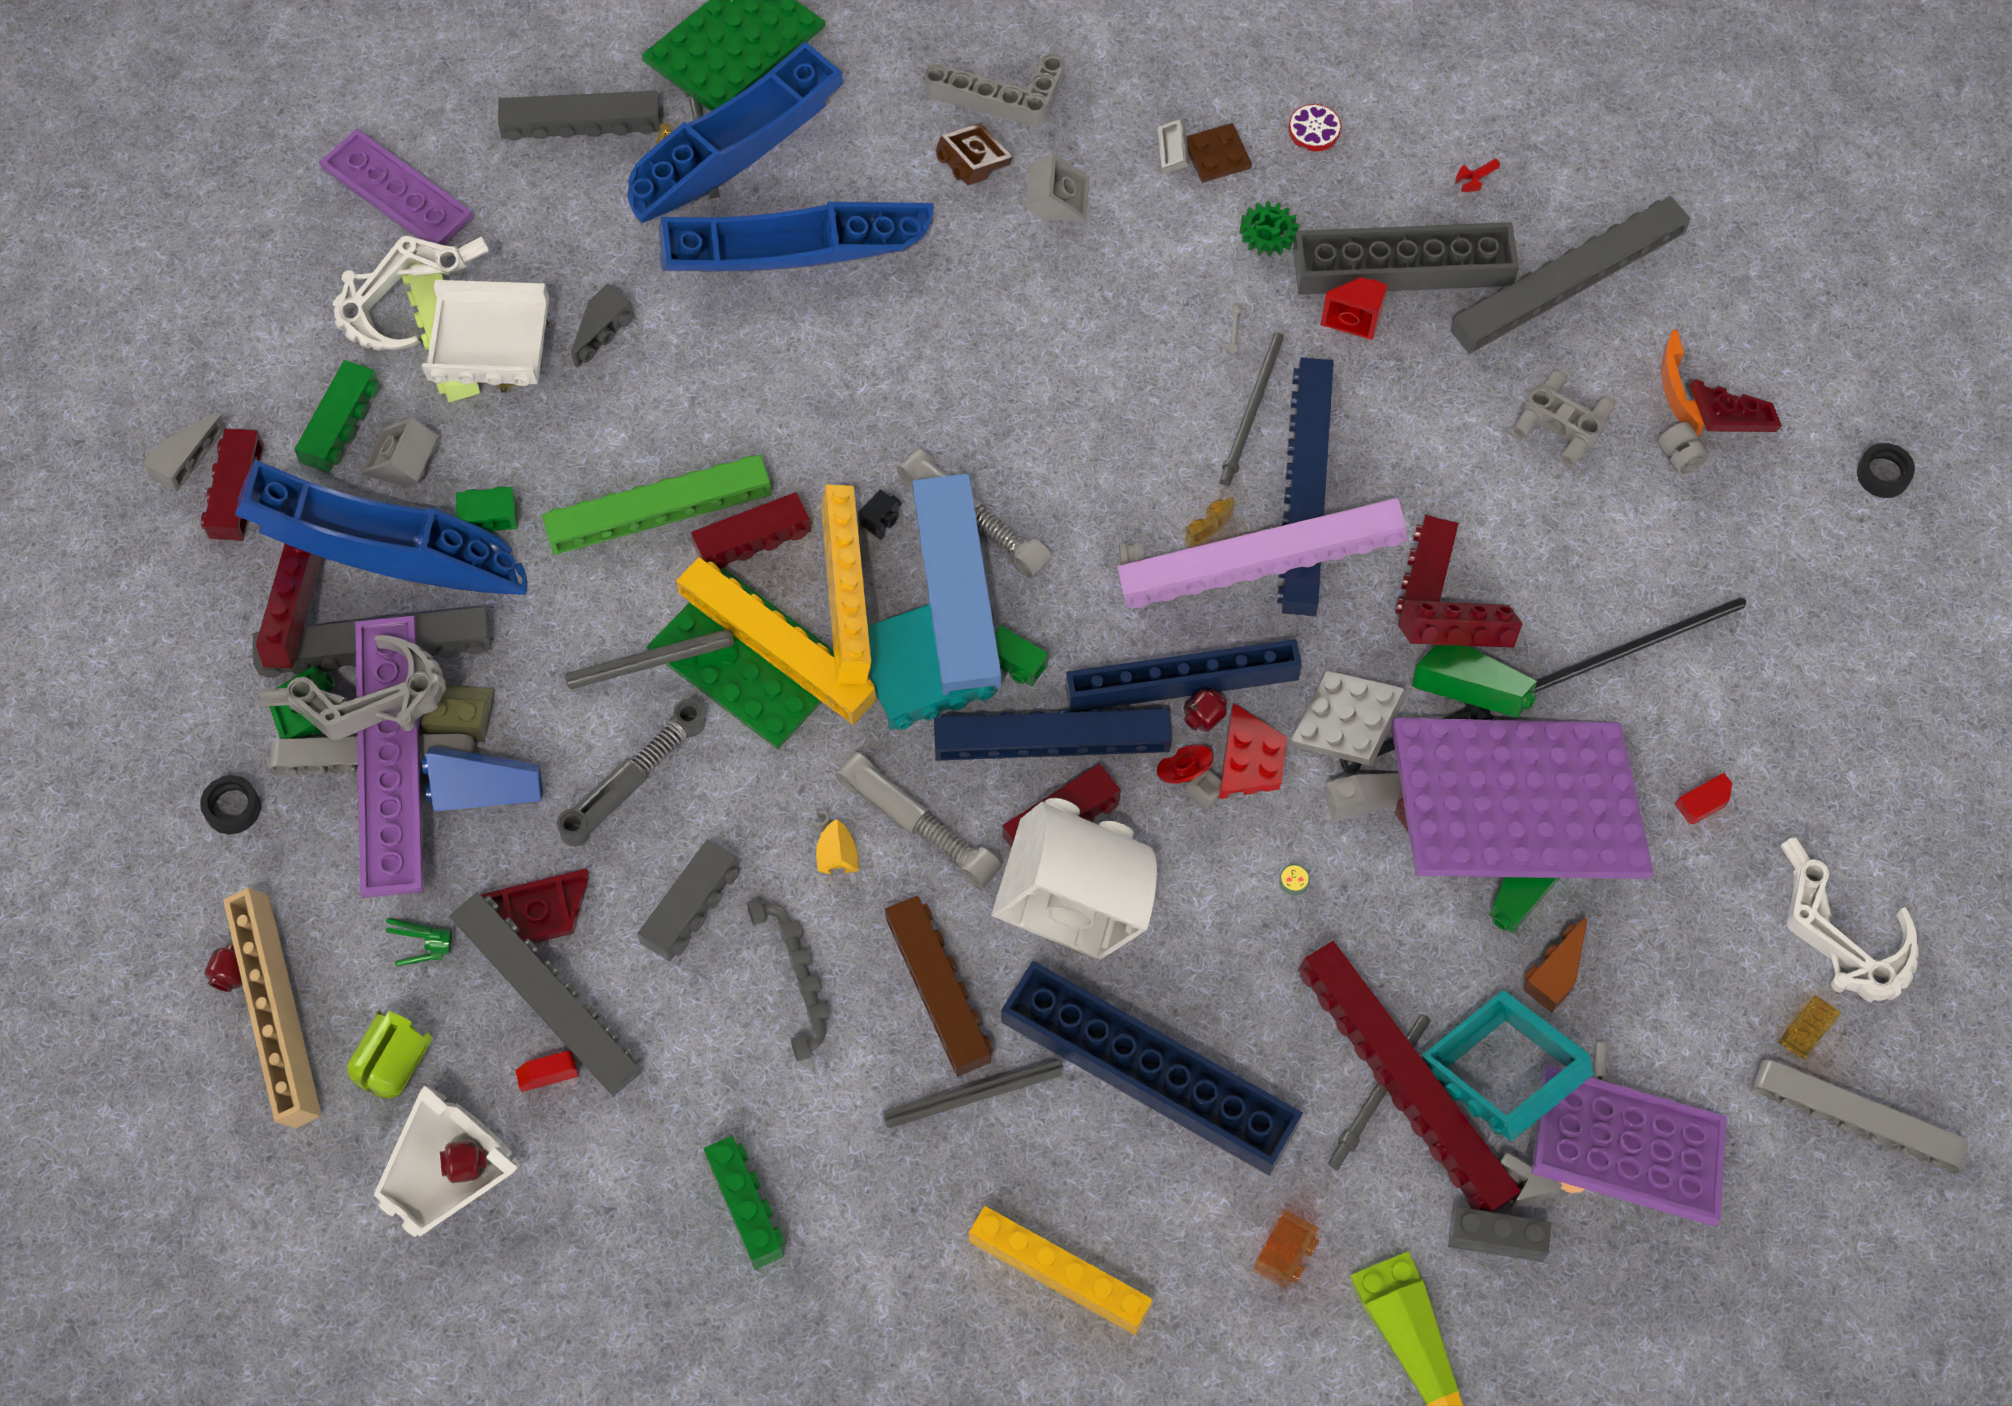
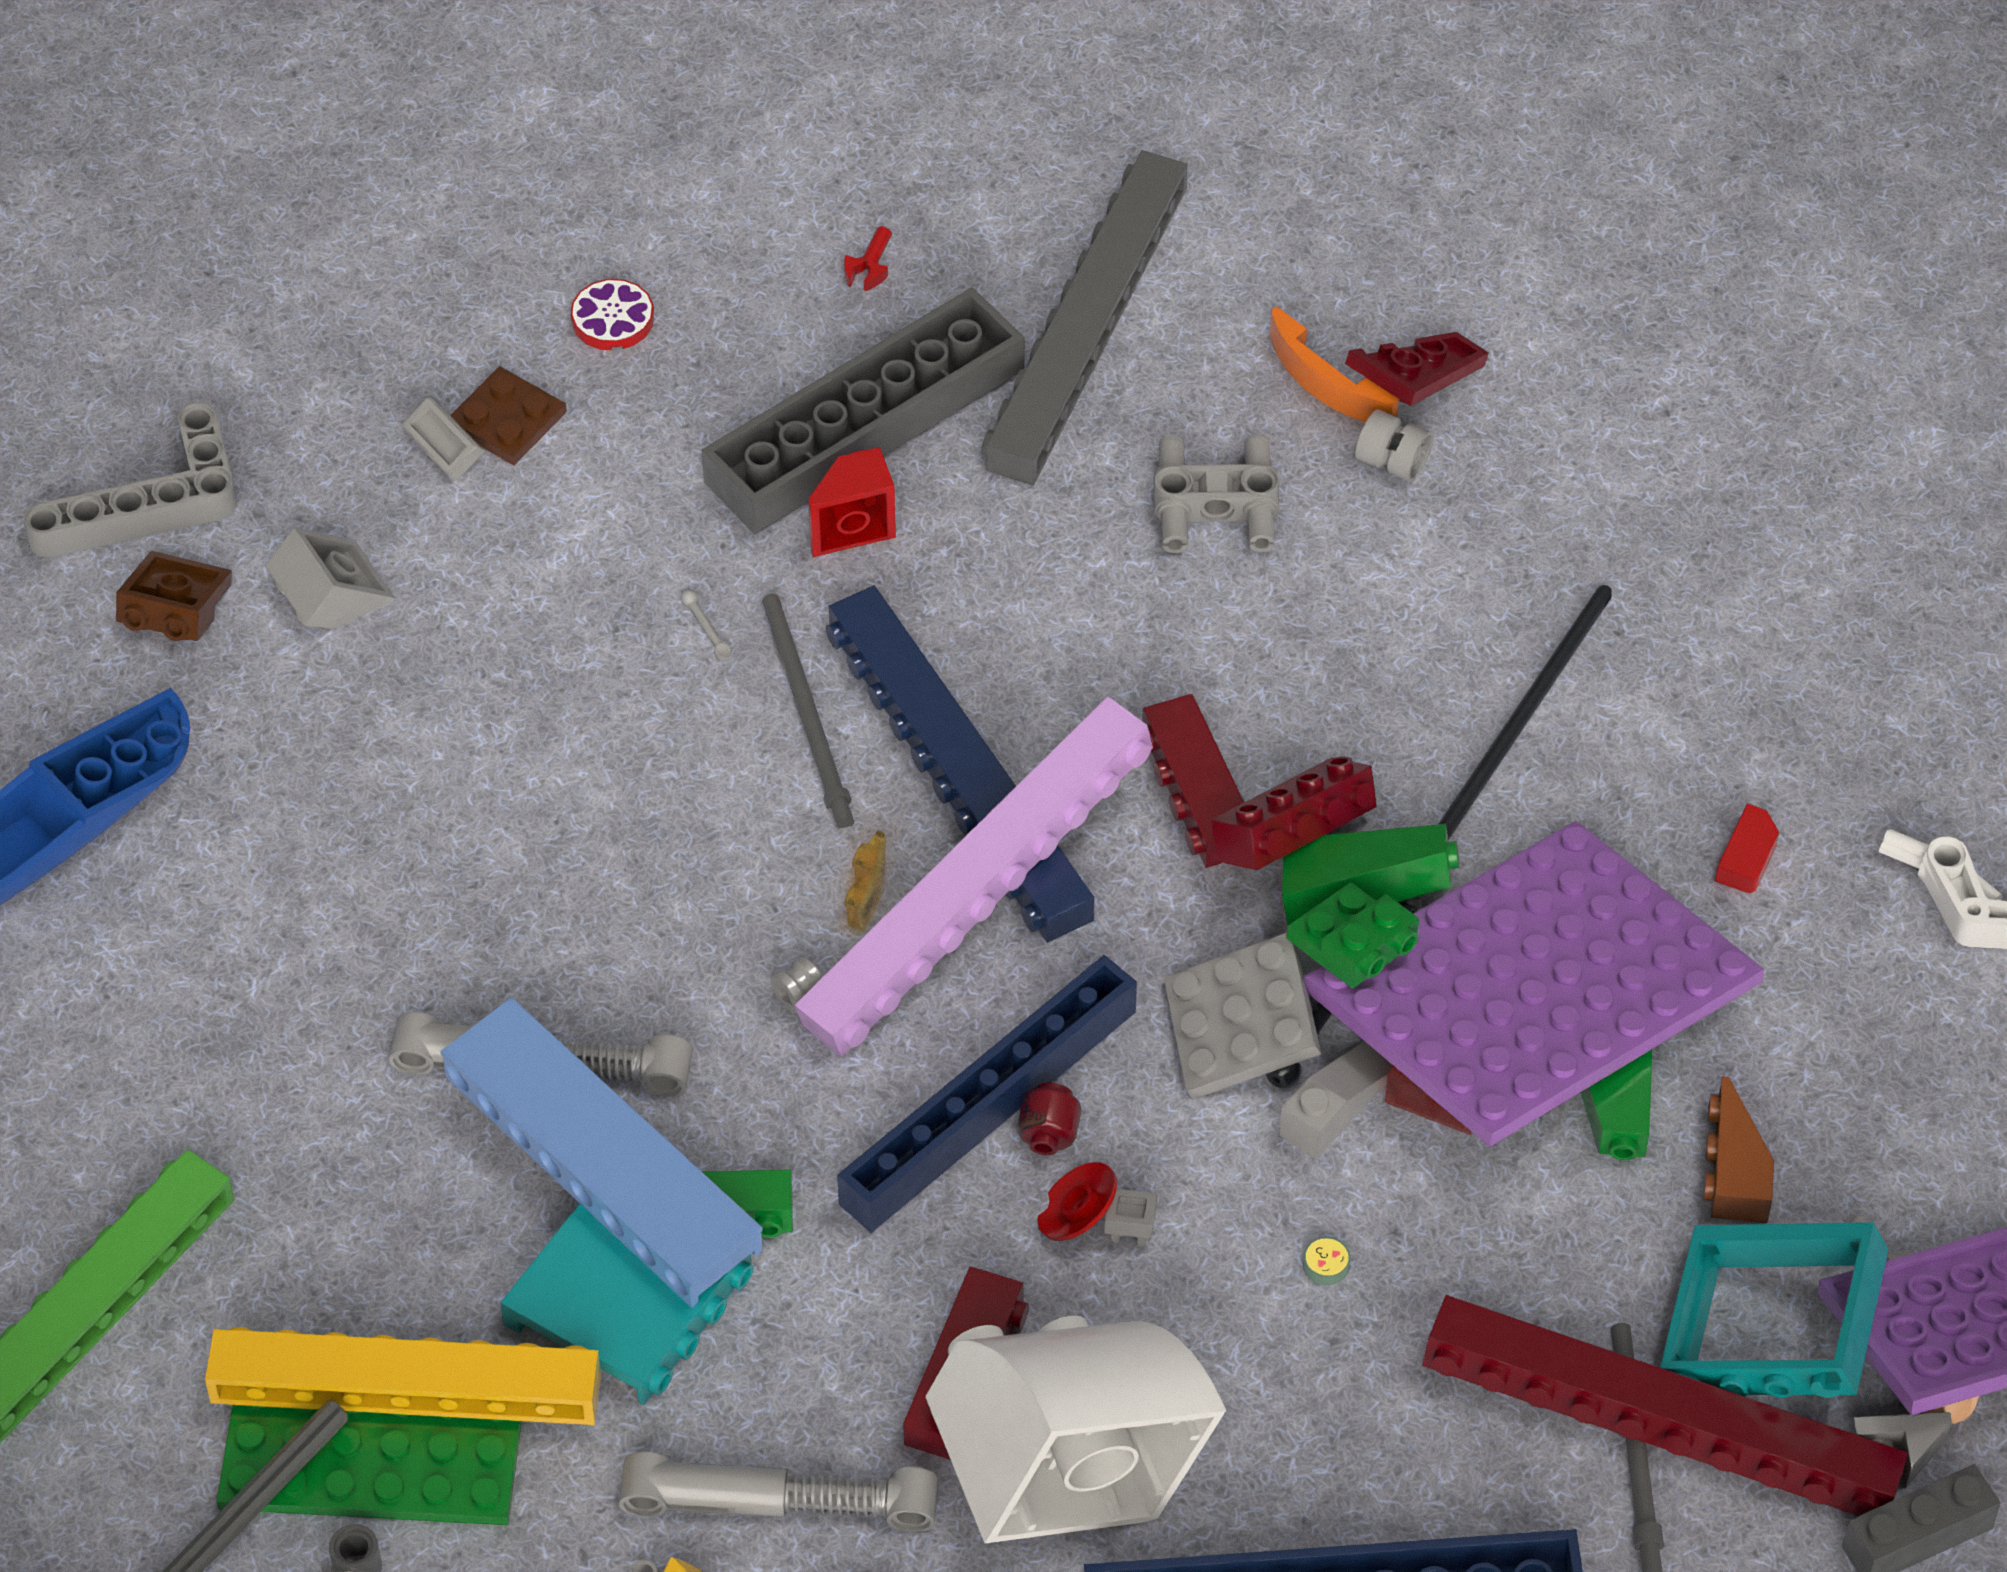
camera: 35 degrees left, 10 degrees down
(752, 531) = (250, 1259): dark red brick -> none
(845, 585) = (449, 1243): yellow brick -> none
(879, 513) = (412, 1132): black brick -> none
(1052, 734) = (870, 1273): dark blue brick -> none
(1251, 756) = (1153, 1138): red wing -> none
(1268, 228) = (654, 472): green gear -> none
(1436, 711) = (1355, 933): none -> green plate
(1879, 487) = (1648, 359): black tyre -> none

